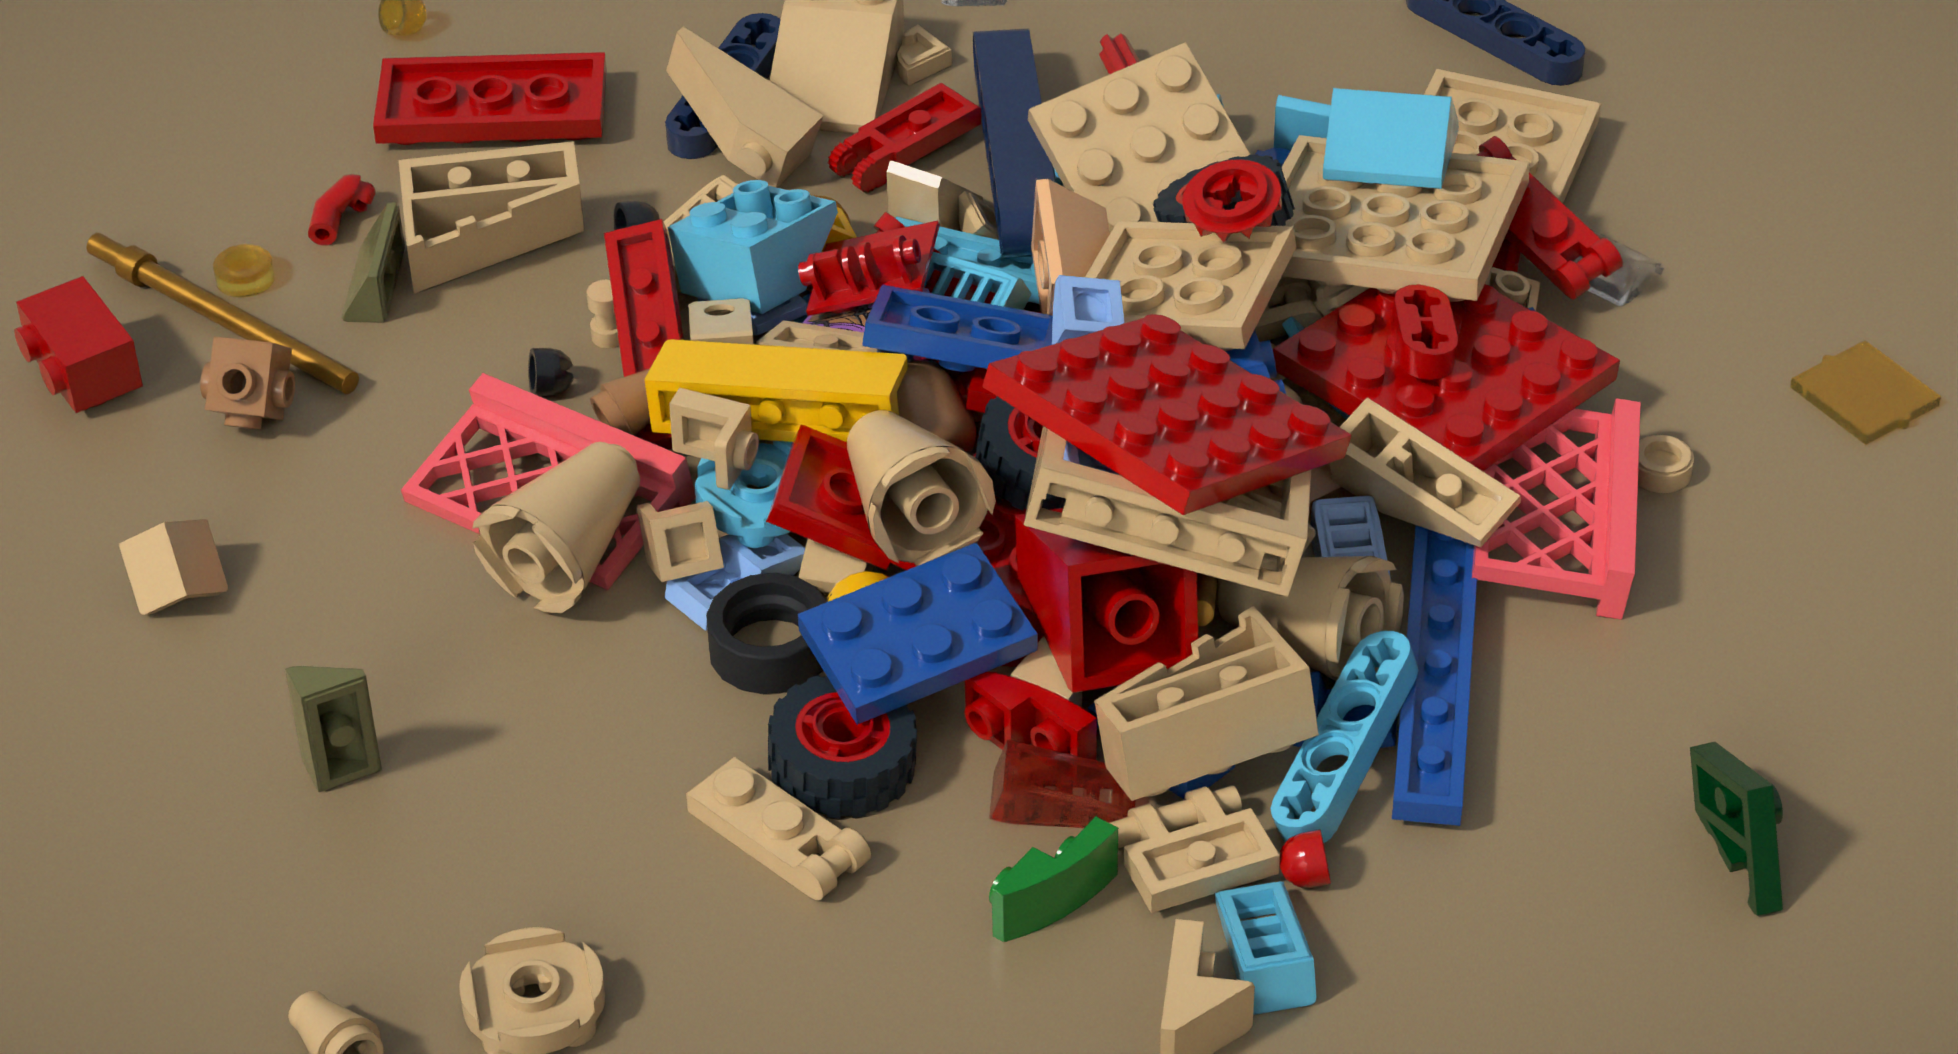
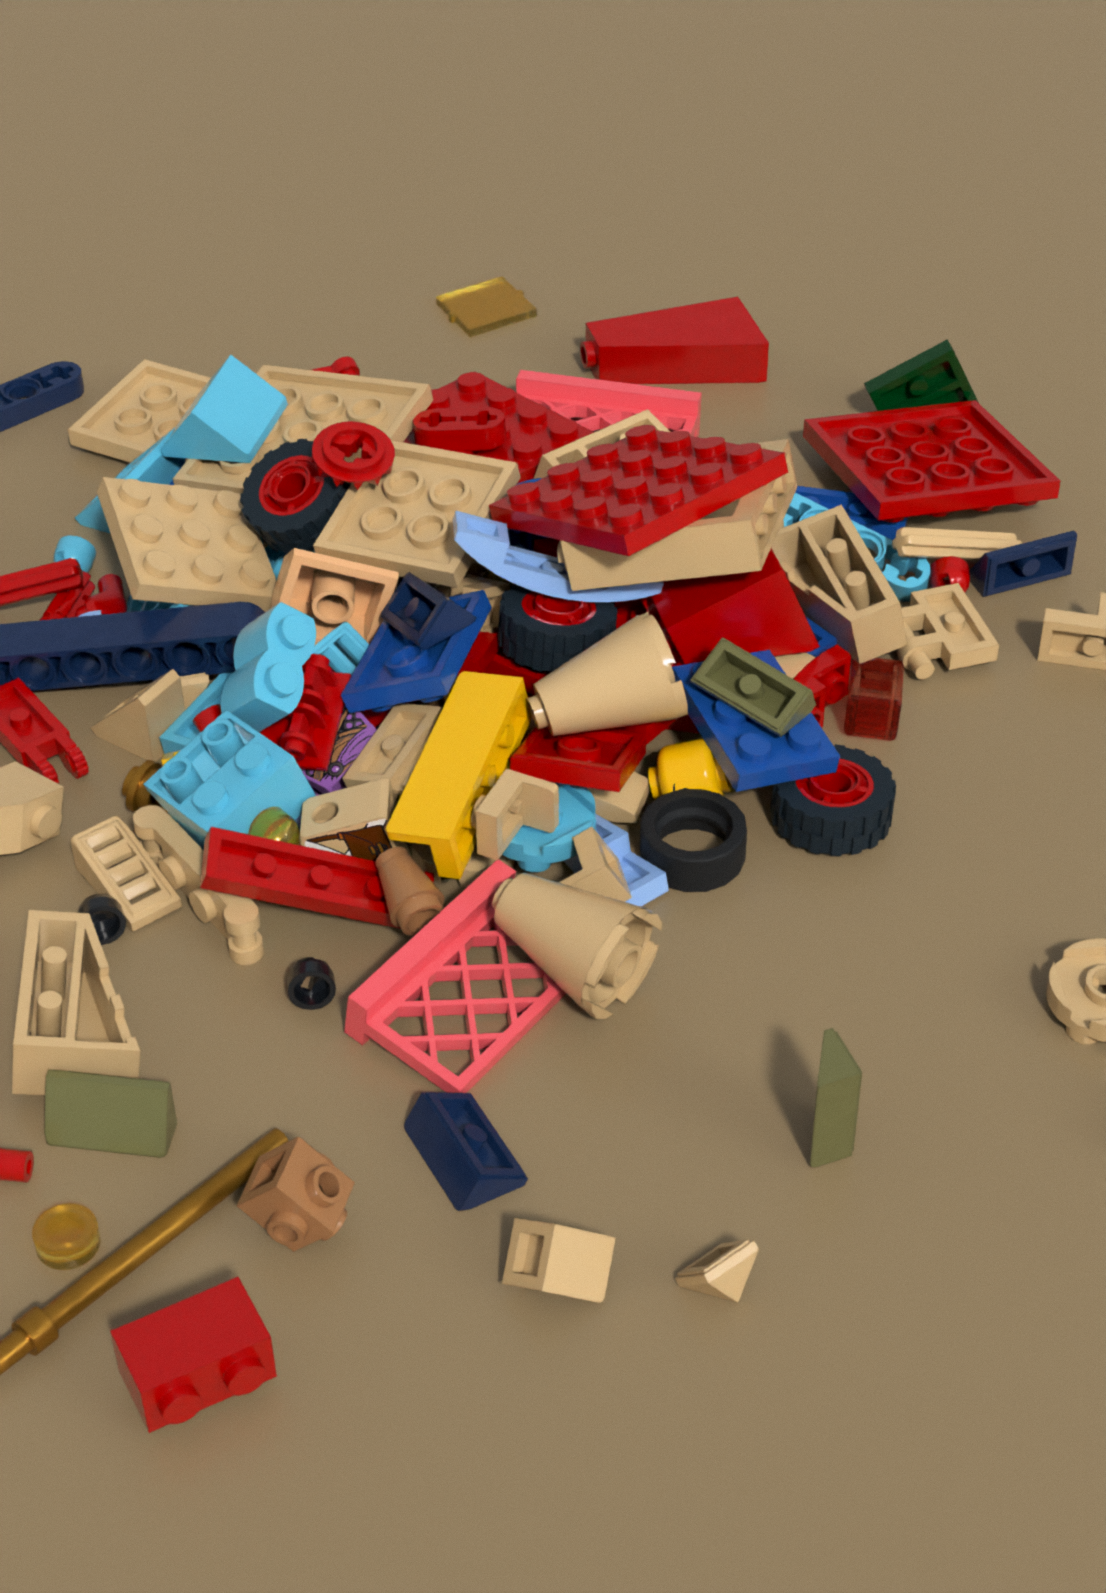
camera: 85 degrees left, 0 degrees up
(155, 682) = (721, 1270): none -> tan slope
(333, 503) = (462, 1149): none -> dark blue slope
(701, 283) = (275, 825): none -> clear yellow hinge
(777, 828) = (912, 850): tan plate -> none
(901, 203) = (269, 666): none -> medium azure brick
(928, 604) = (754, 688): none -> olive slope
(1000, 318) = (424, 612): none -> dark blue slope
(1049, 887) = (989, 695): green slope -> none
(1268, 949) = (1030, 598): medium azure slope -> none
(1354, 939) = (1024, 564): none -> dark blue slope
(1356, 850) = (944, 543): none -> tan axle
(1551, 819) = (930, 460): none -> red plate
(1796, 572) = (678, 346): none -> red slope

